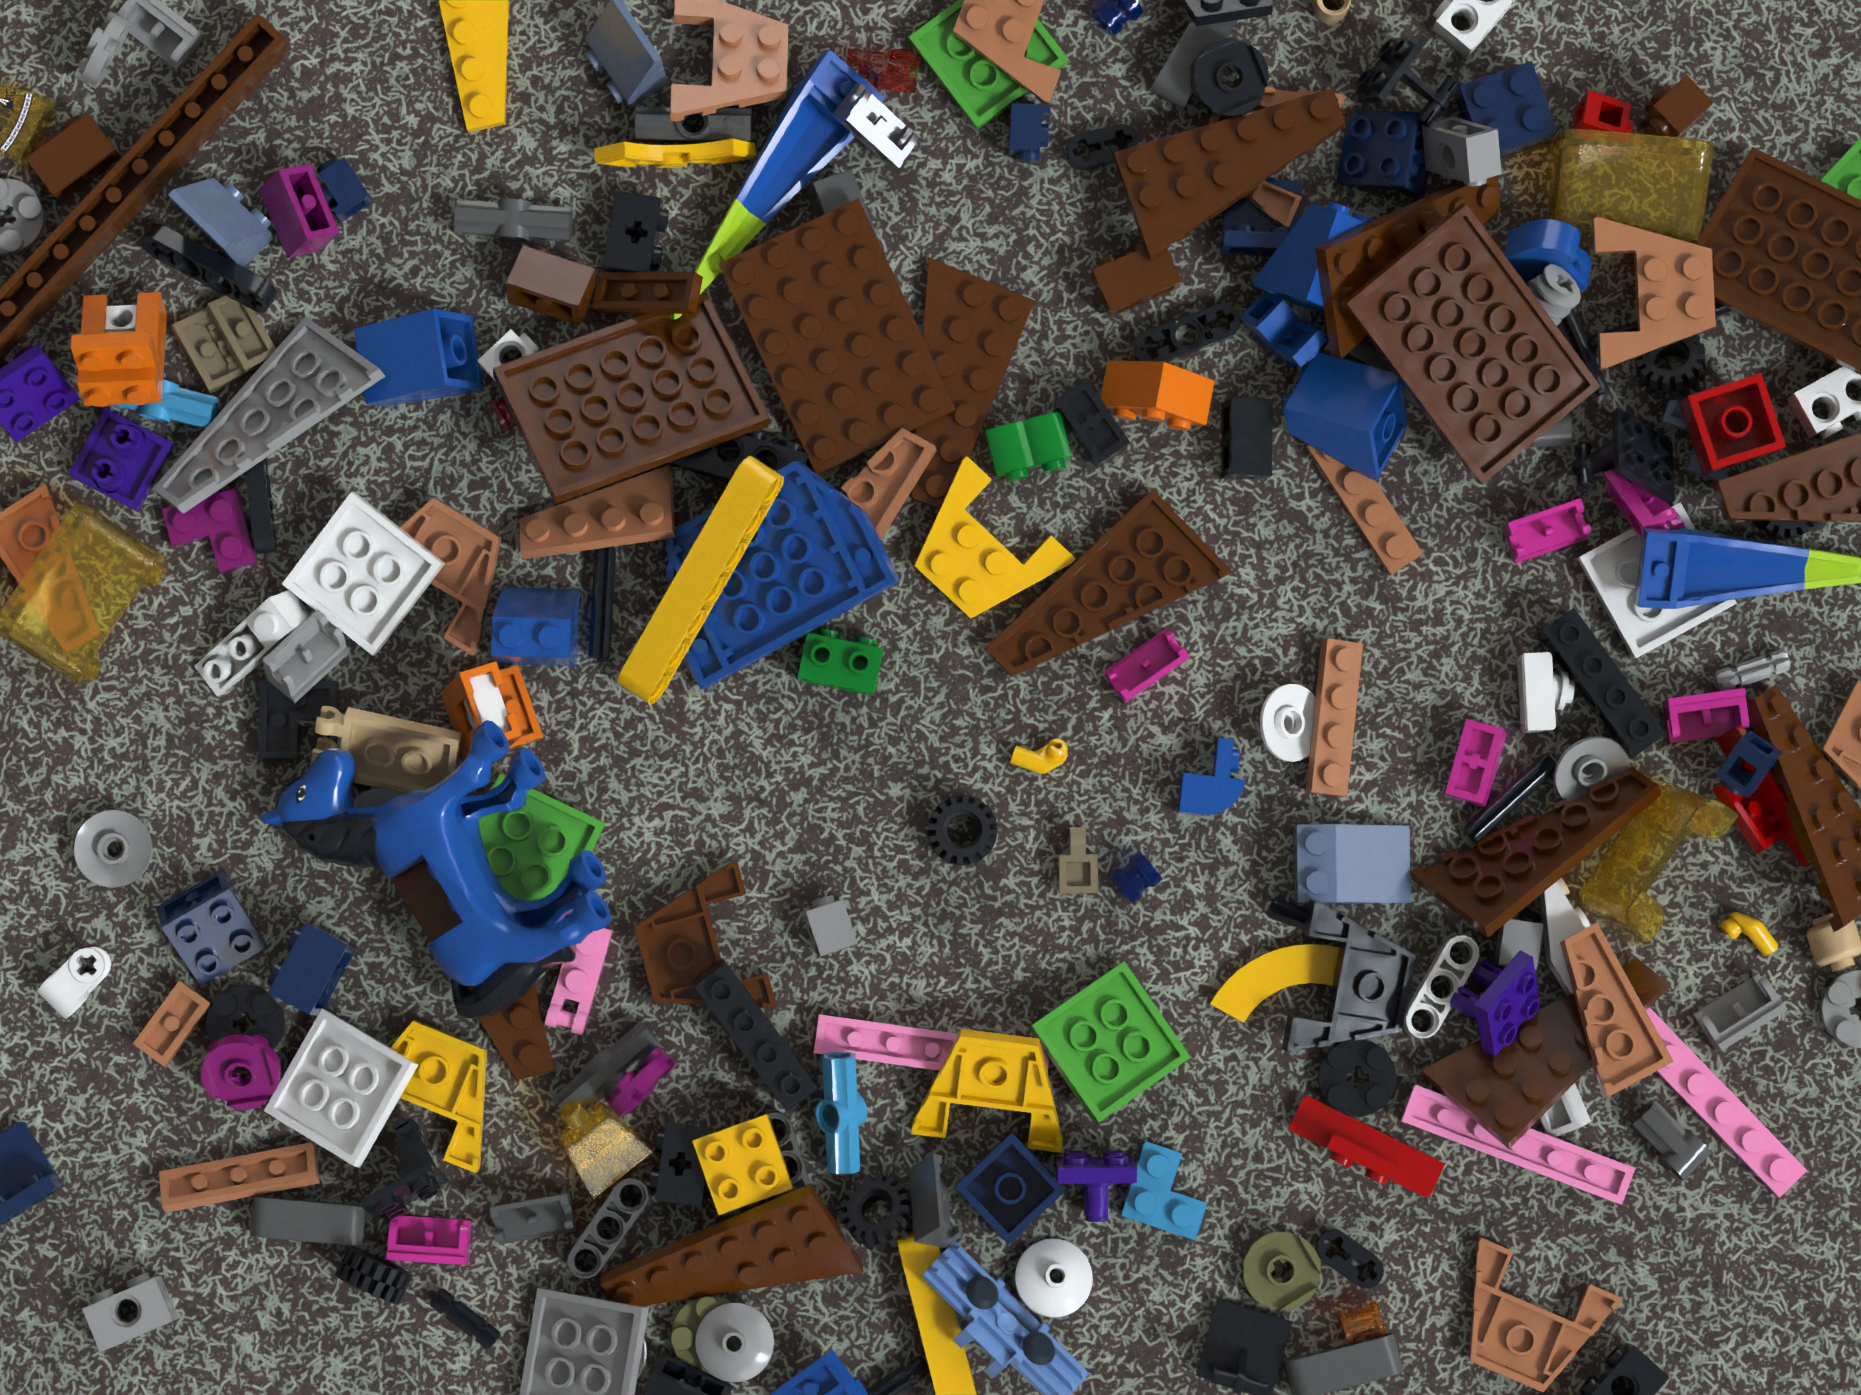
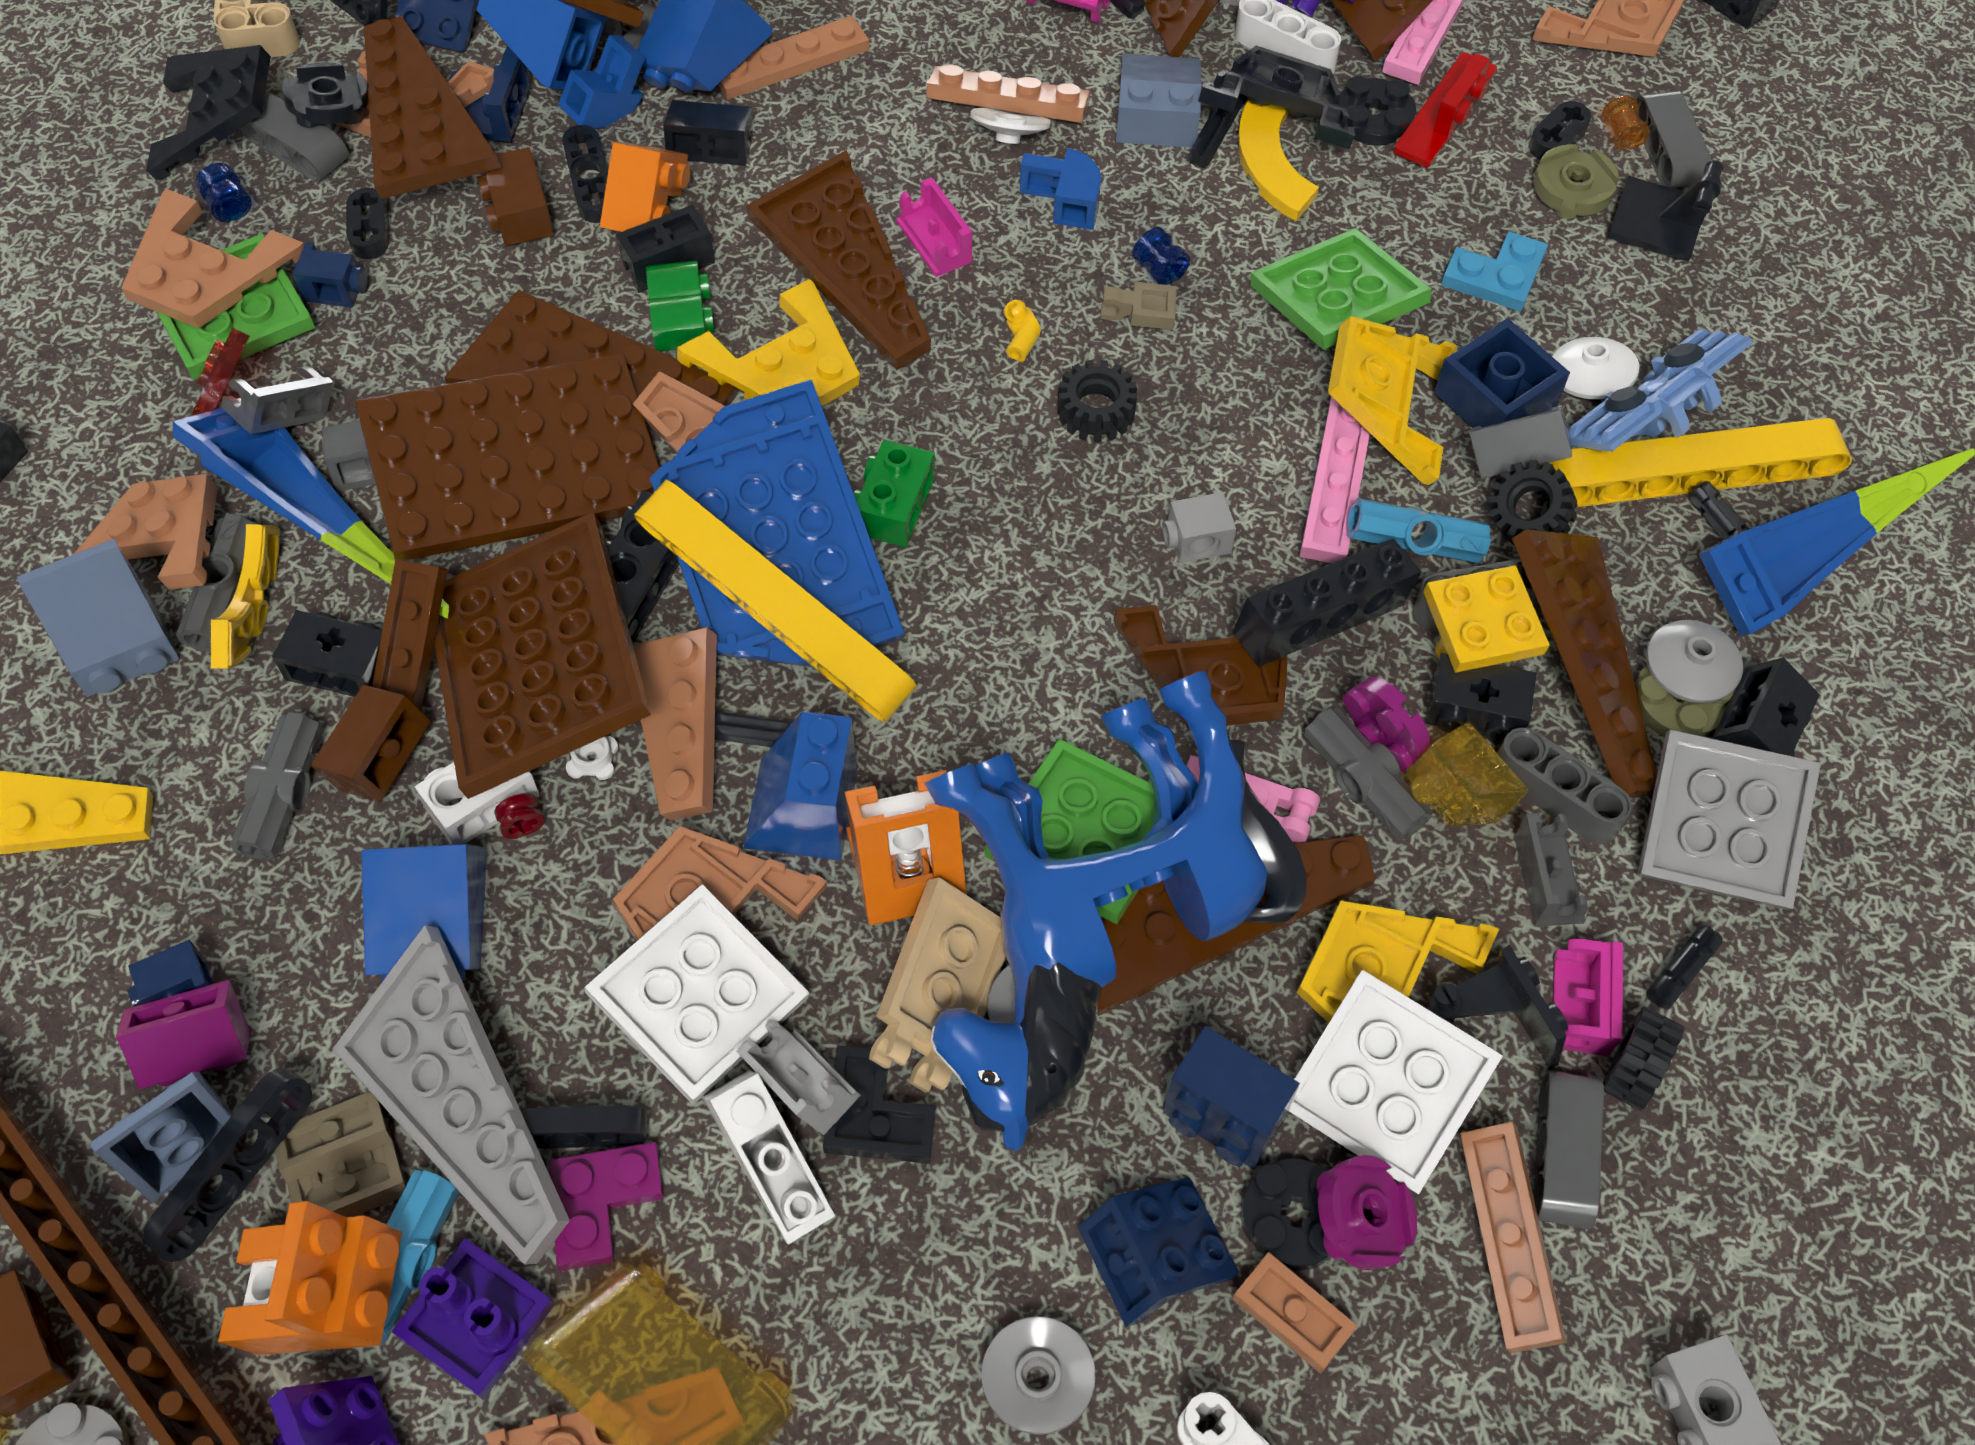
camera: 85 degrees left, 25 degrees down
(1095, 1176) = (1487, 293): dark purple plate -> none

